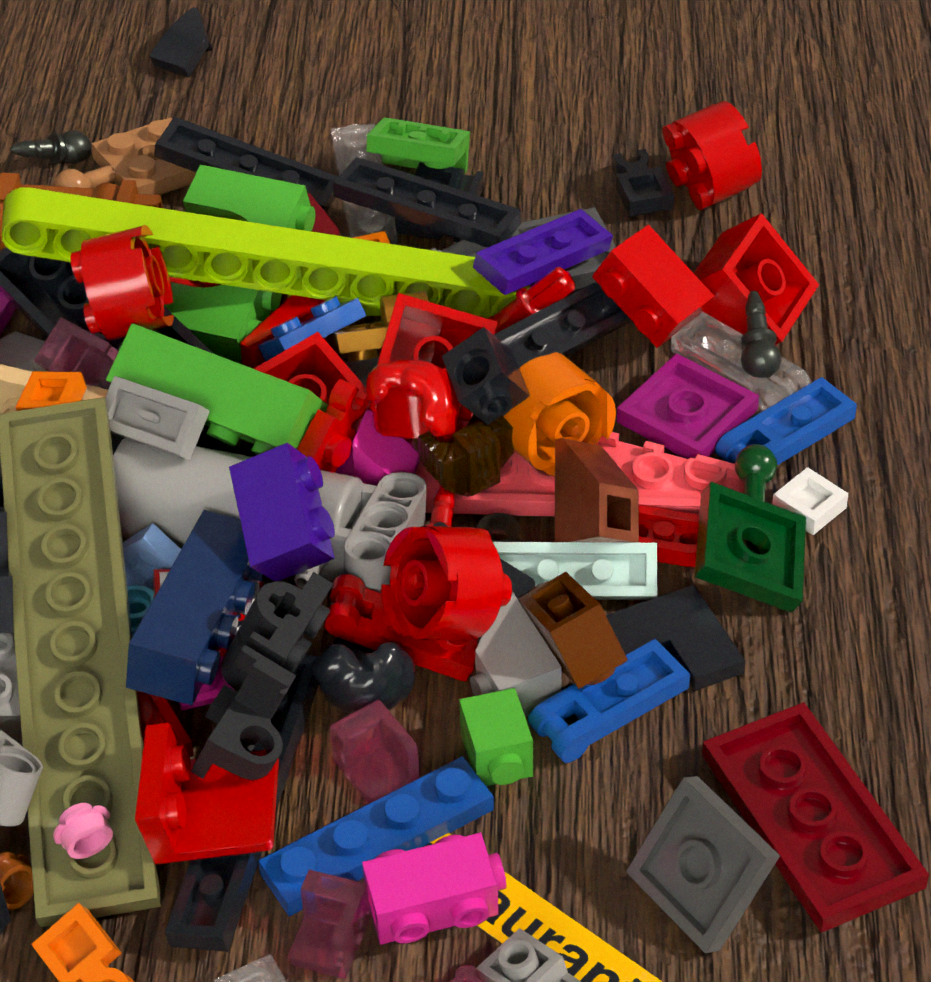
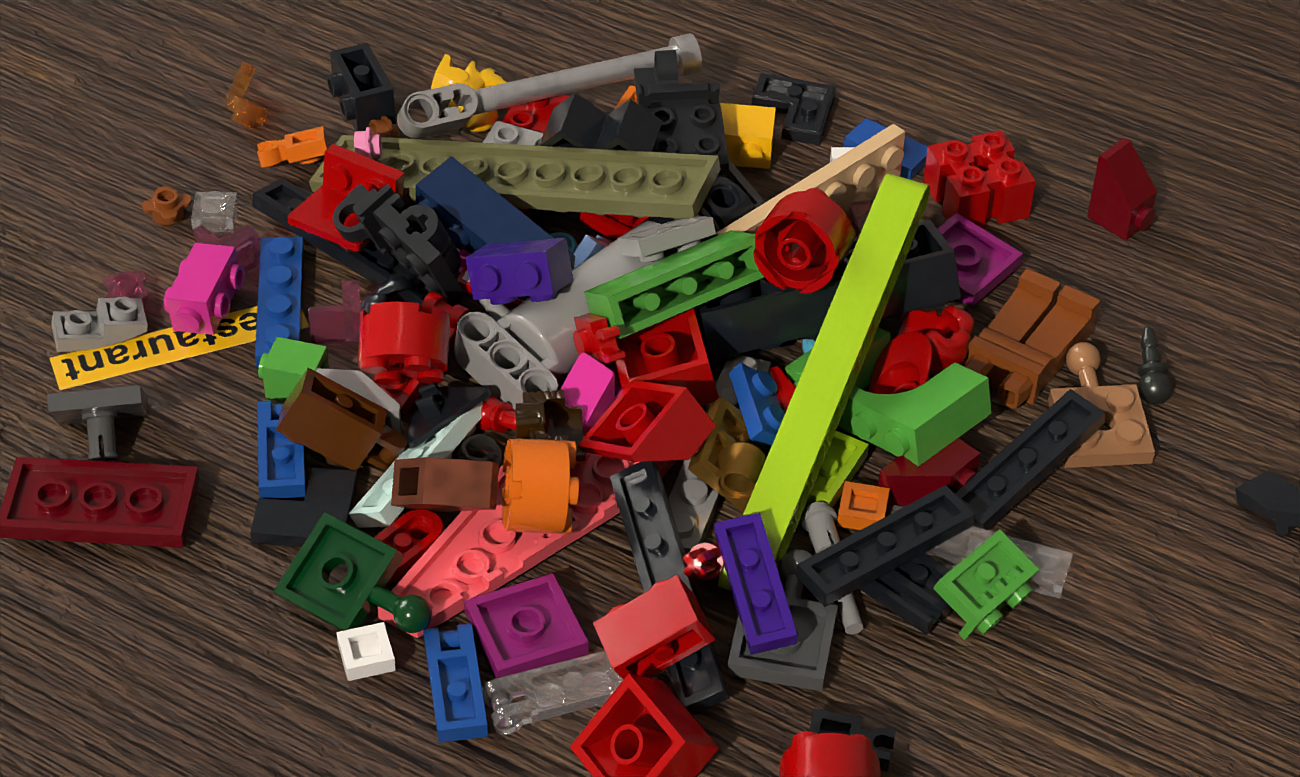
camera: 115 degrees right, 0 degrees up
(51, 389) = (731, 198): orange plate -> none
(412, 399) = (582, 382): red hair -> none
(485, 376) = (564, 415): black brick -> none
(760, 354) = (536, 686): pearl dark grey bar -> none

